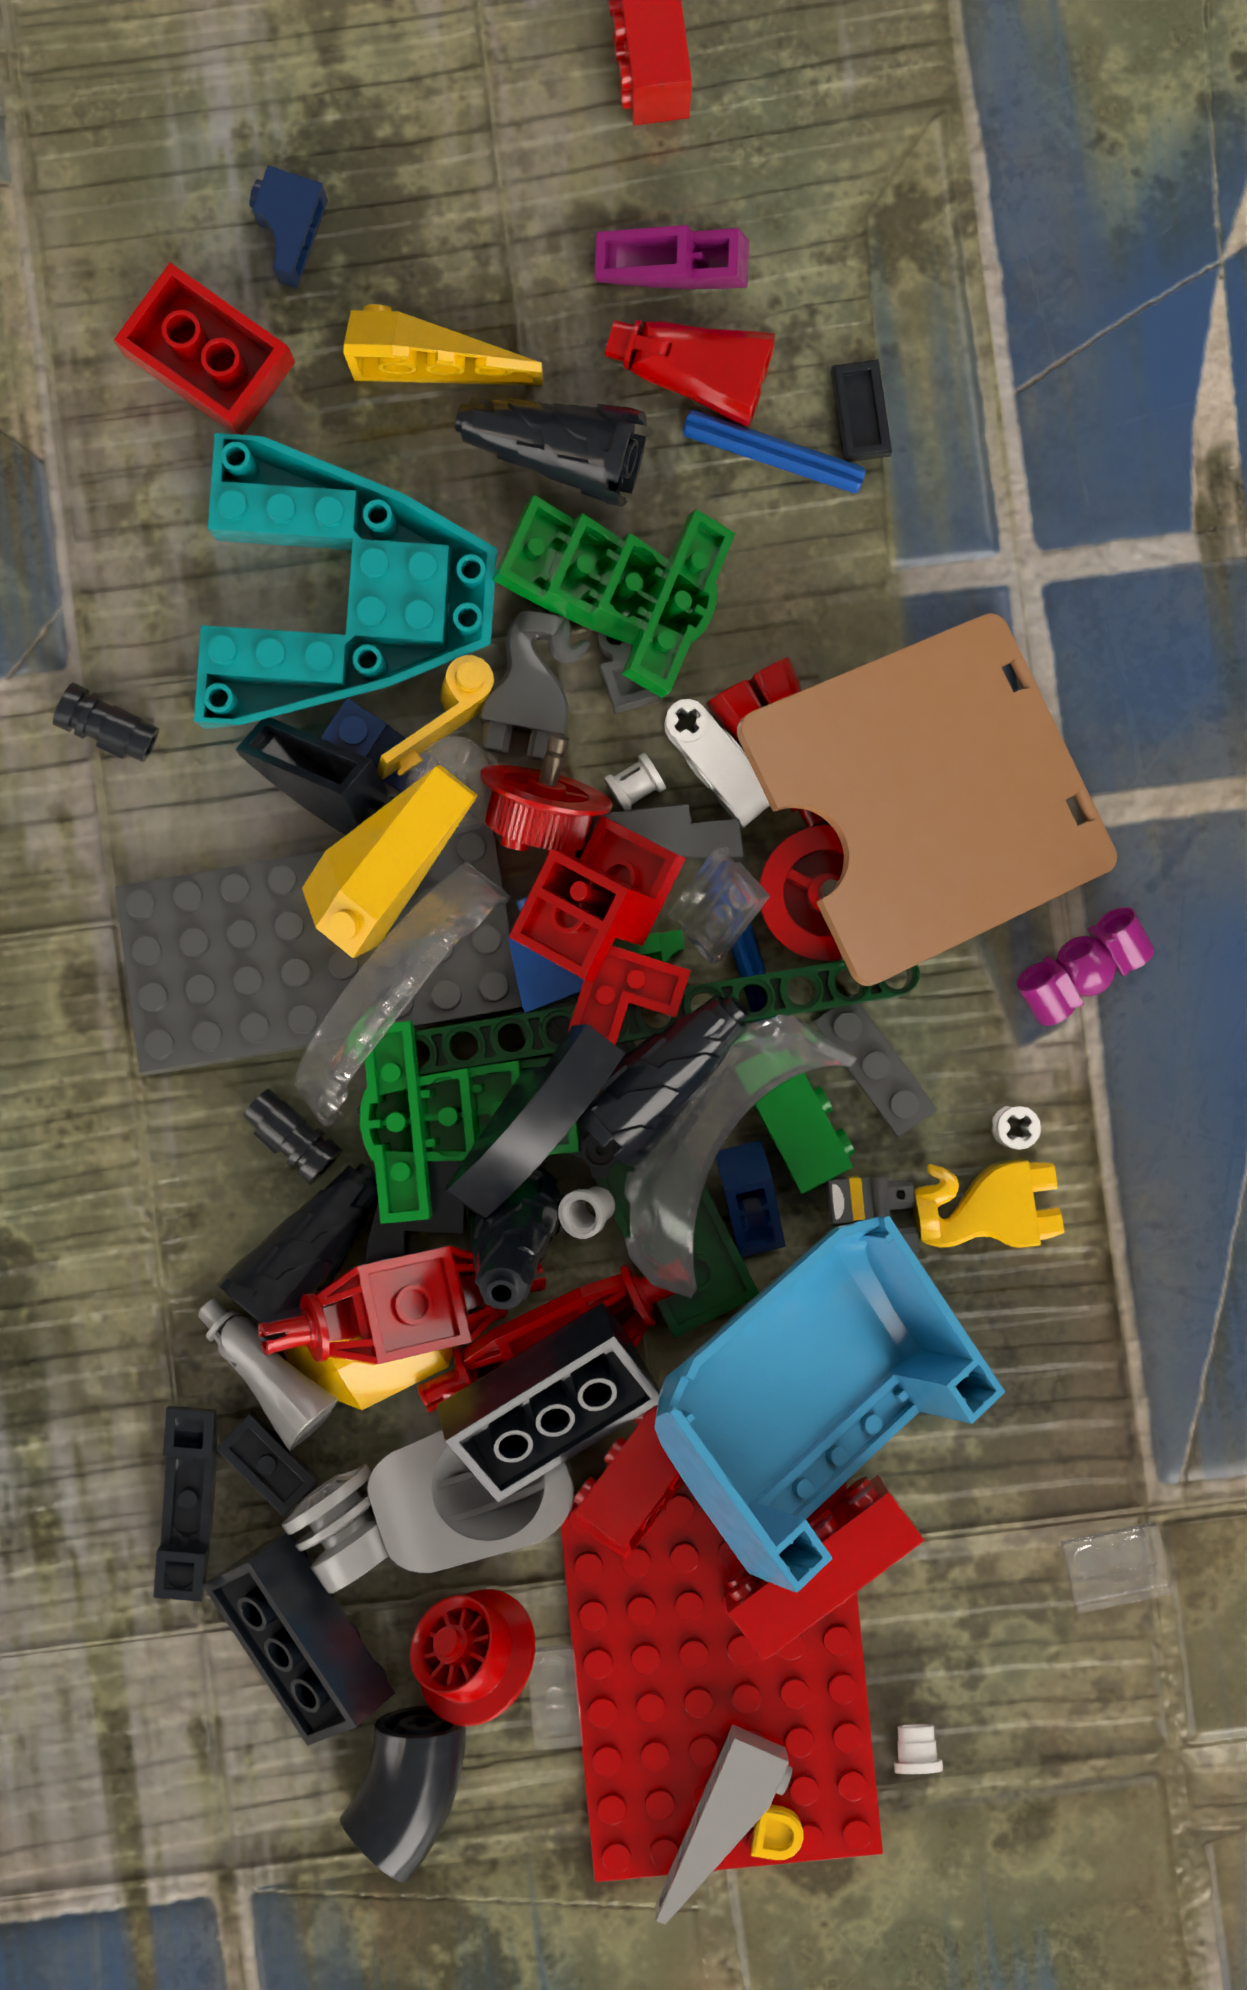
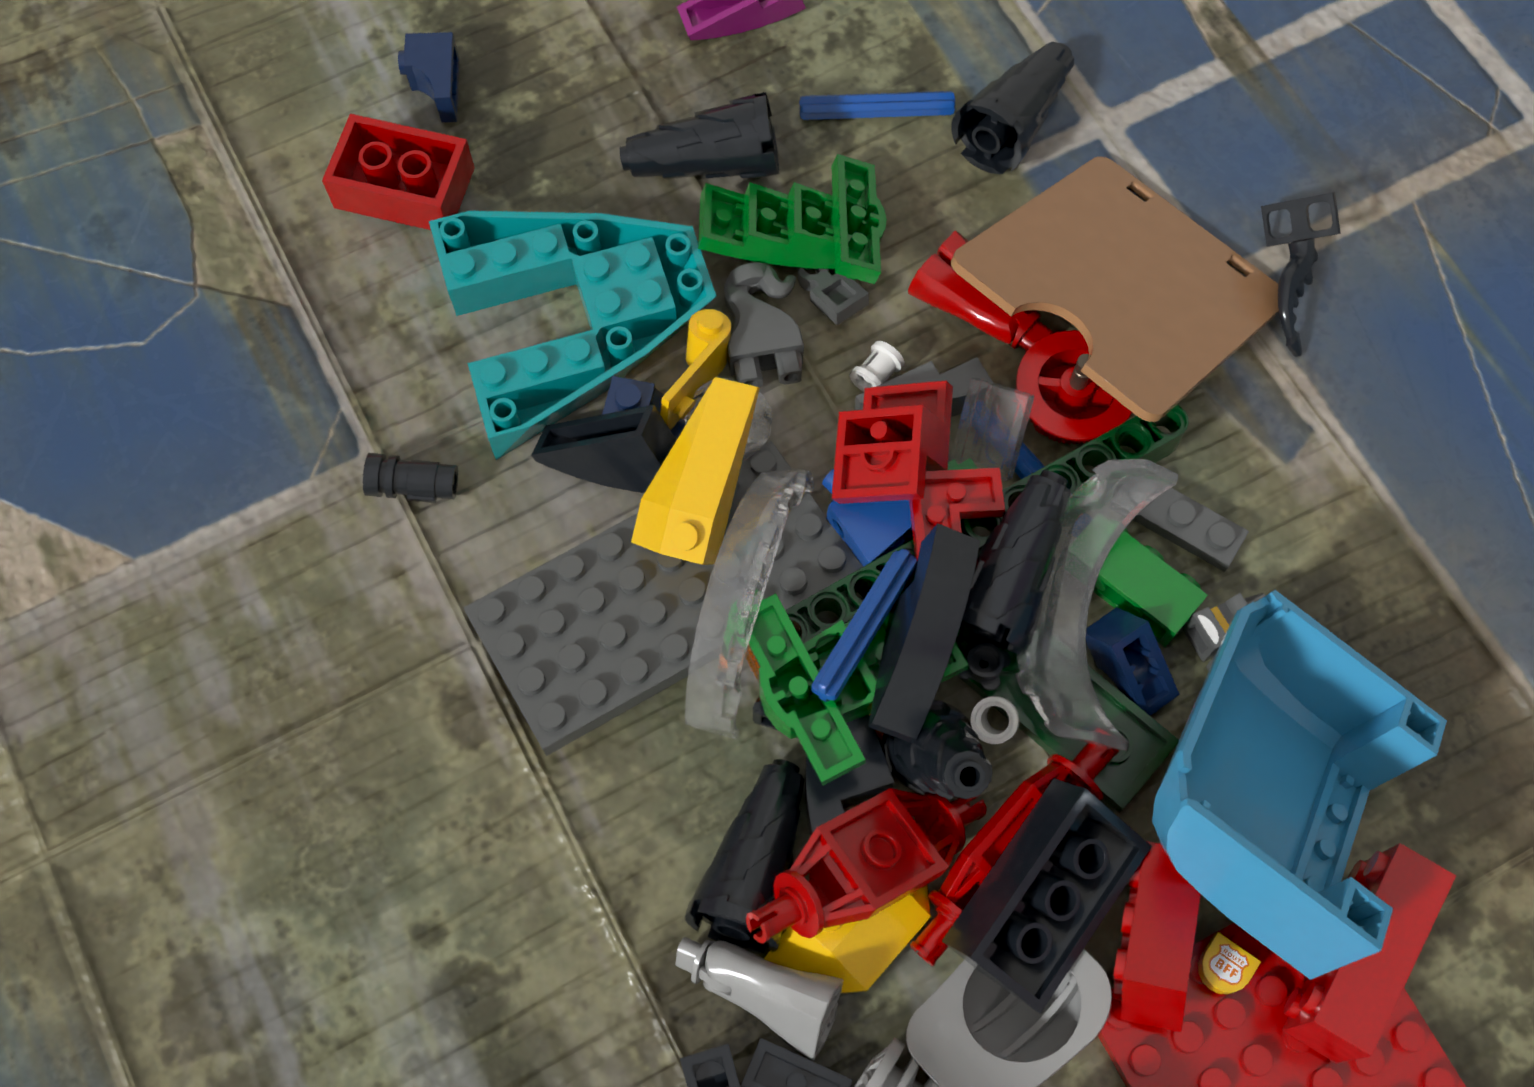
camera: 20 degrees left, 20 degrees down
(286, 1131) = (697, 760): black axle -> none
(403, 348) = (572, 124): yellow wedge -> none
(484, 1085) = (864, 625): none -> blue axle
(541, 805) = (810, 401): red piece -> none
(692, 1523) = (1225, 965): none -> tile
(701, 363) = (802, 62): red piece -> none
(717, 761) = (935, 326): white piece -> none
(861, 410) = (929, 58): black tile -> none
(920, 523) = (1010, 111): none -> black cone
(993, 1206) = (1345, 583): yellow hips -> none
(1030, 1127) = (1333, 515): white bush -> none
(1085, 966) = (1309, 374): magenta piece -> none
(1153, 820) = (1302, 255): none -> black piece

